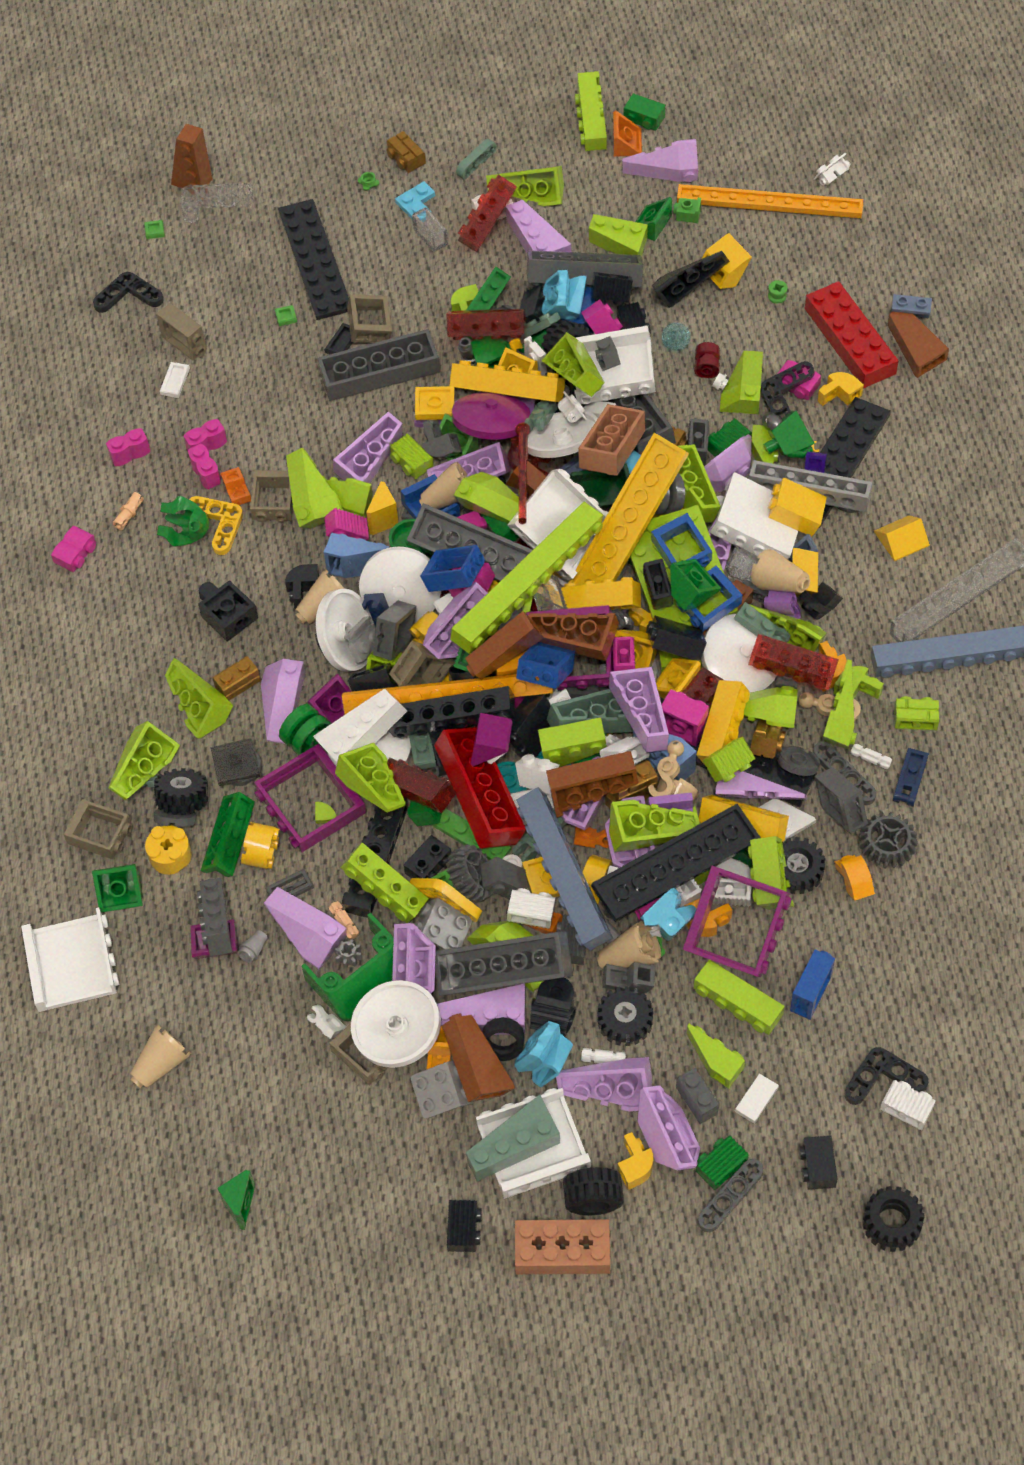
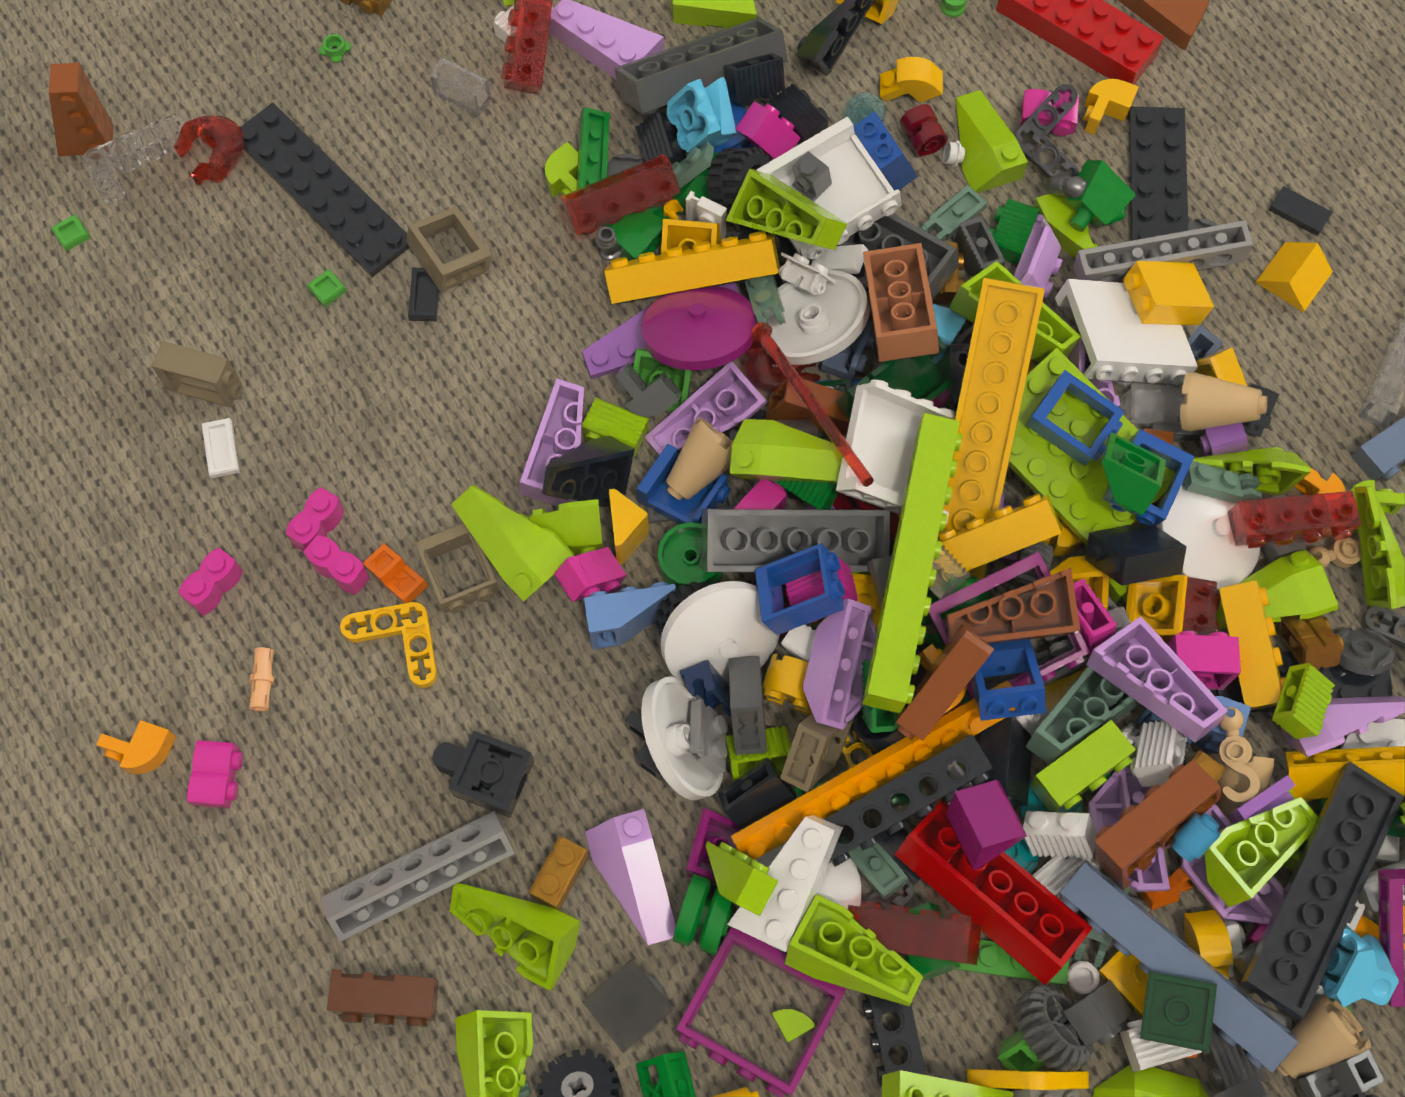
camera: 30 degrees left, 10 degrees up
(42, 521) = (144, 752): none -> light orange brick
(100, 699) = (383, 998): none -> reddish brown wedge
(131, 287) = (80, 333): black beam -> none
(156, 645) = (416, 876): none -> light grey brick
(193, 522) = (362, 653): green piece -> none
(270, 209) = (222, 136): none -> clear red piece
(300, 580) = (565, 678): black brick -> none
(309, 605) = (613, 695): tan cone -> none
(332, 710) = (741, 877): none -> lime slope
(375, 466) = (590, 471): none -> black wedge
(378, 364) = (499, 311): dark grey brick -> none
(414, 198) = (410, 54): medium azure plate -> none
(427, 859) = (975, 1030): black brick -> none
(433, 402) = (607, 337): yellow plate -> none
(545, 887) = (1178, 1011): none -> dark green tile
(608, 793) = (1196, 836): none -> dark azure brick
(658, 583) = (1076, 487): black brick -> none
(668, 360) = (884, 151): none -> blue window
(707, 412) = (960, 208): none -> sand green hinge
(720, 326) = (912, 76): none -> yellow brick
(815, 462) = (1146, 220): dark purple tile -> none
(930, 501) = (1300, 211): none -> black tile

